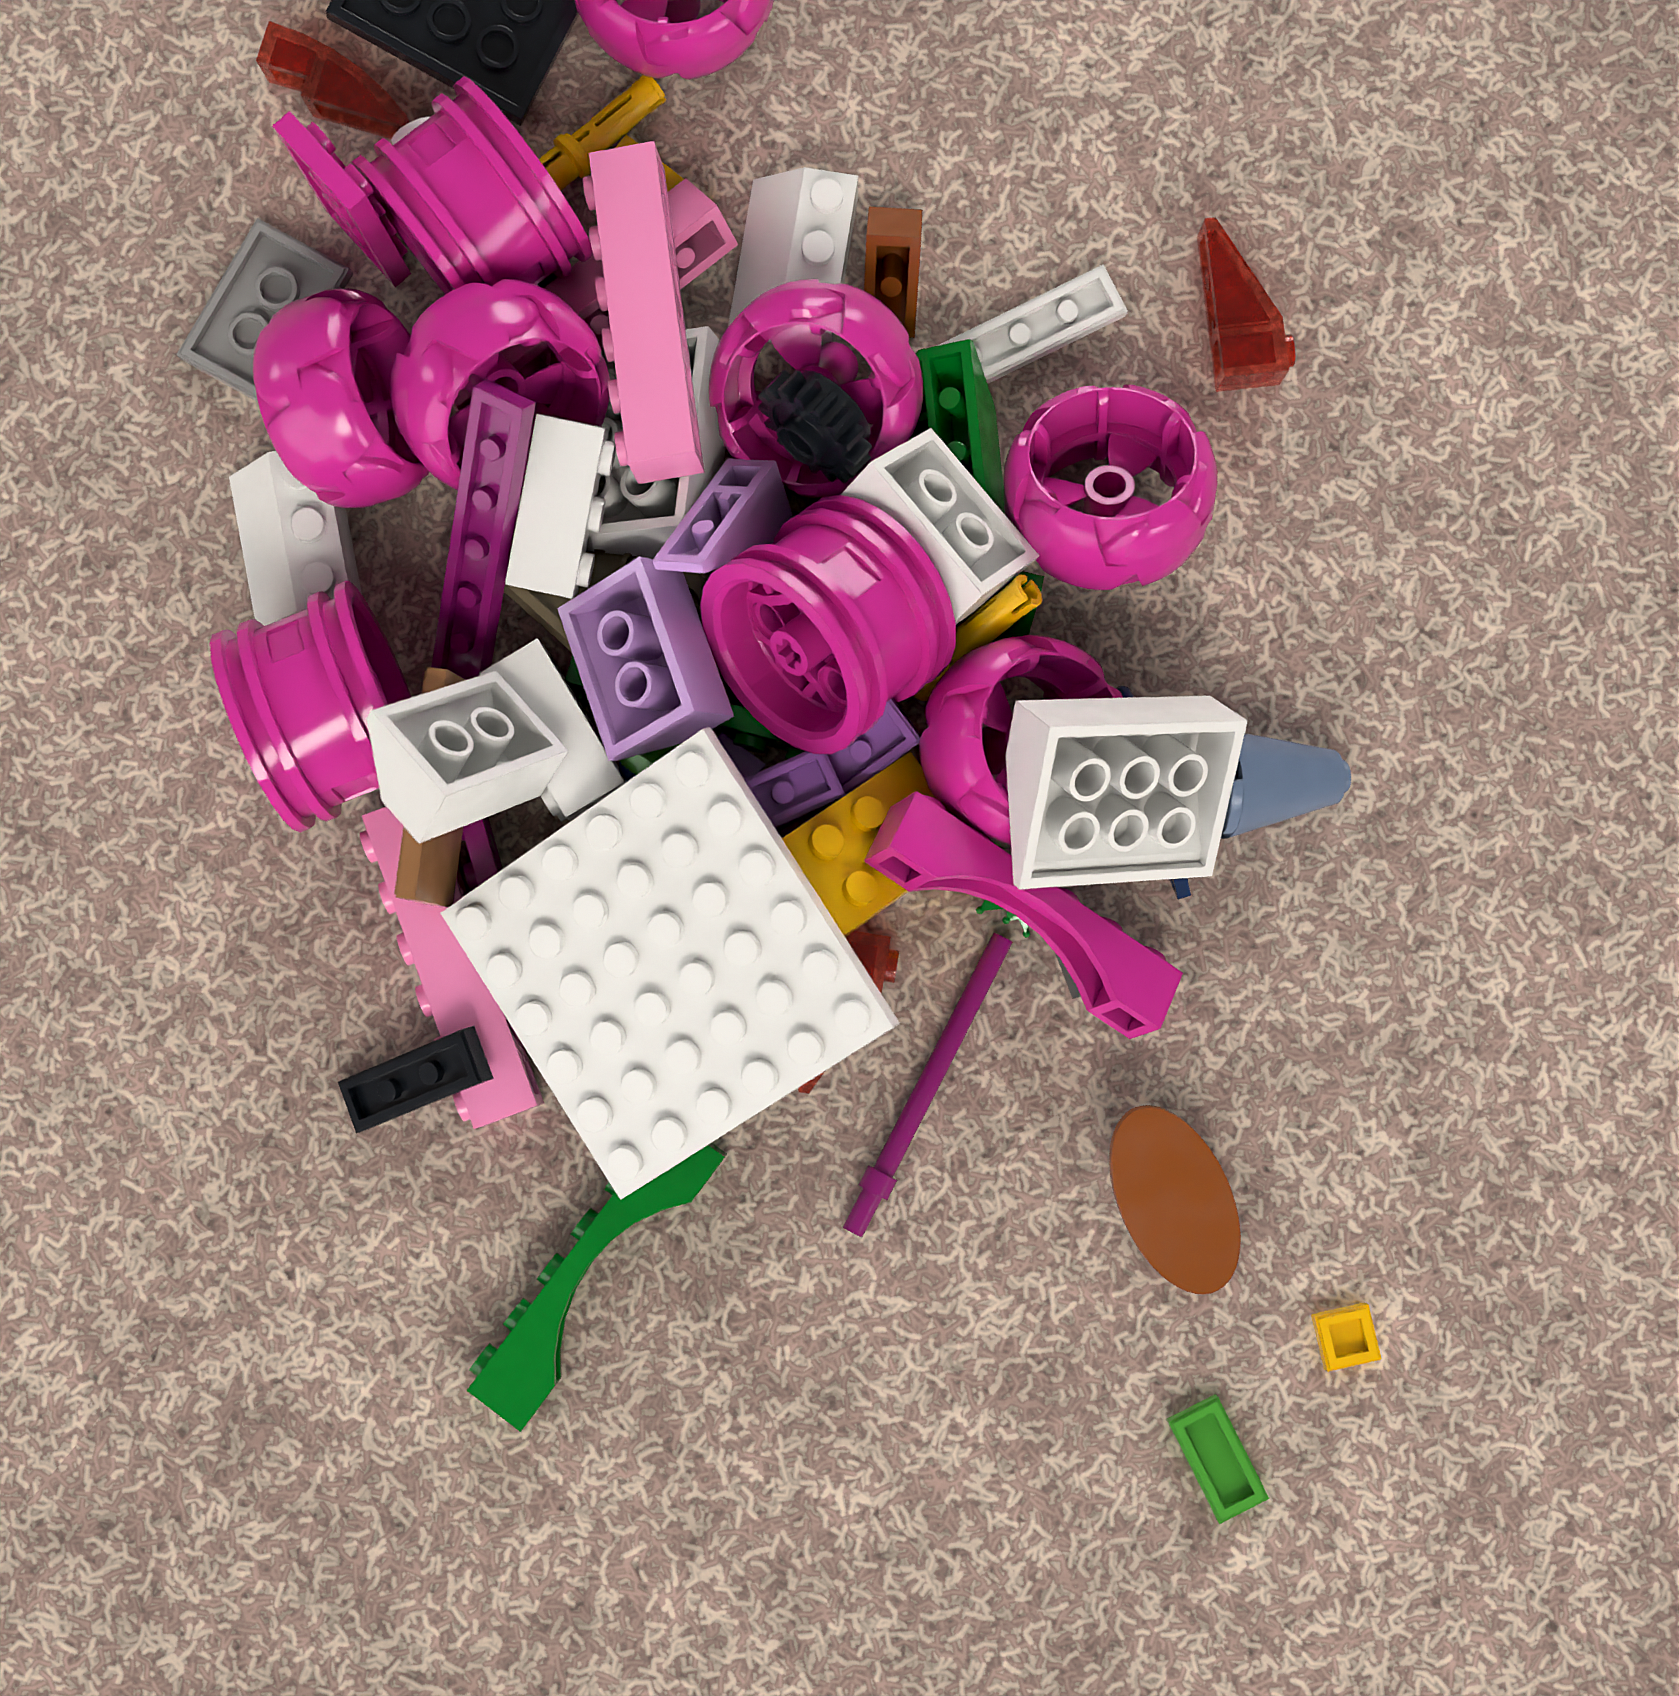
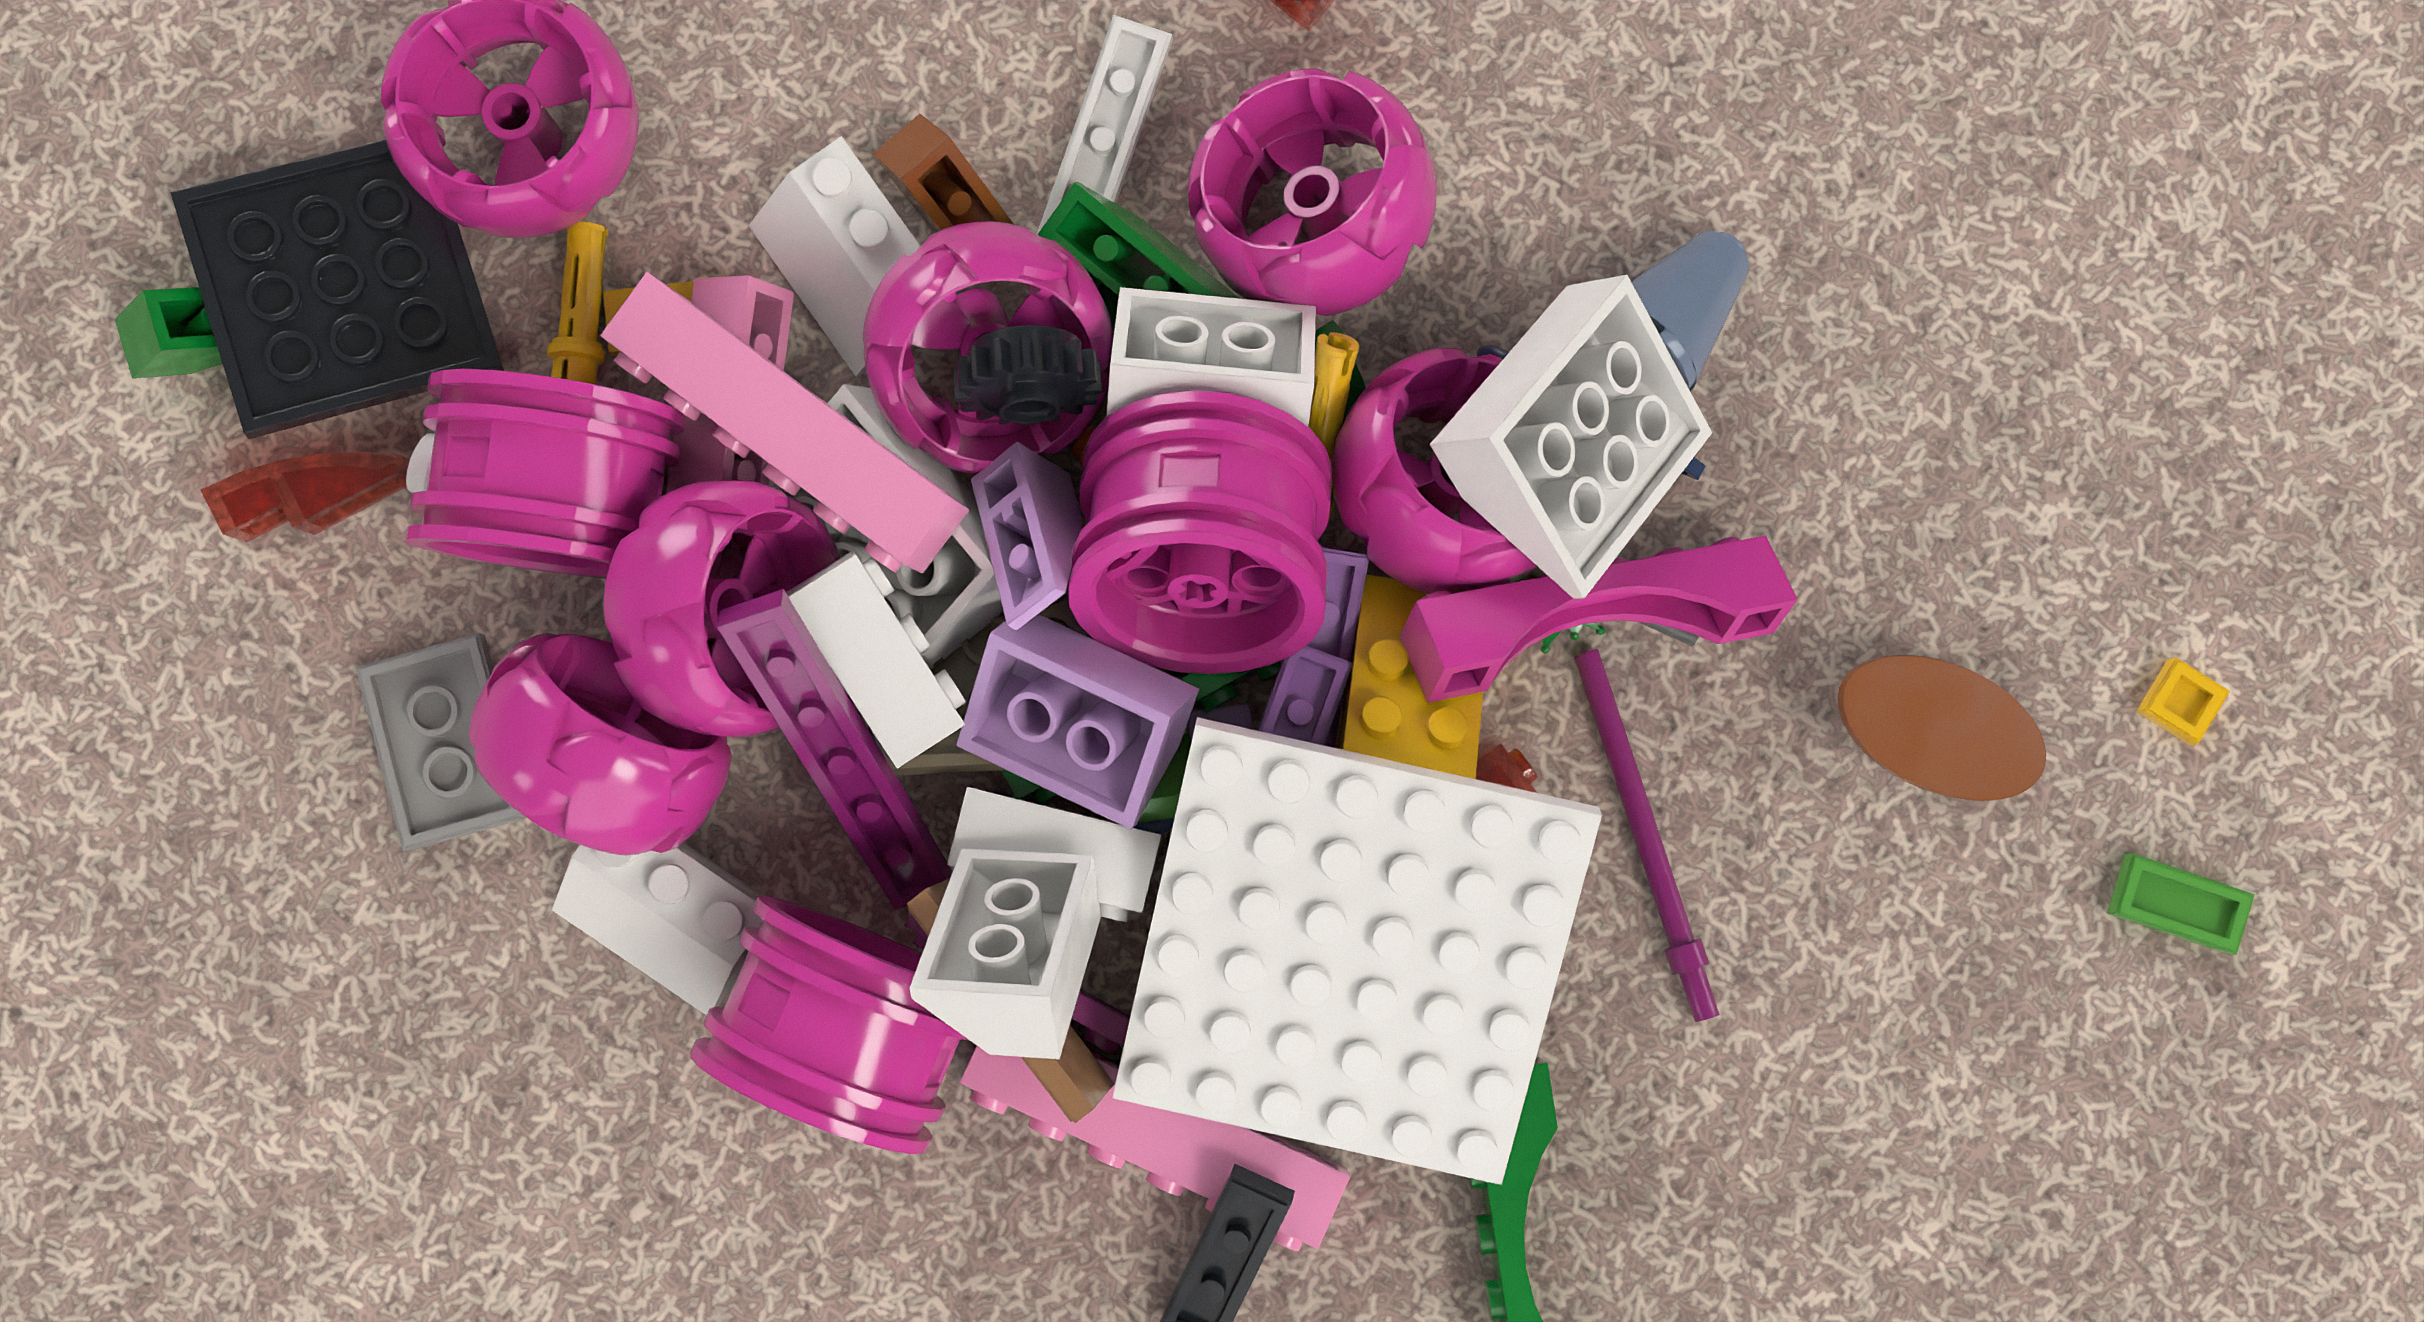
camera: 50 degrees left, 0 degrees up
(344, 196) = (426, 576): dark pink plate -> none

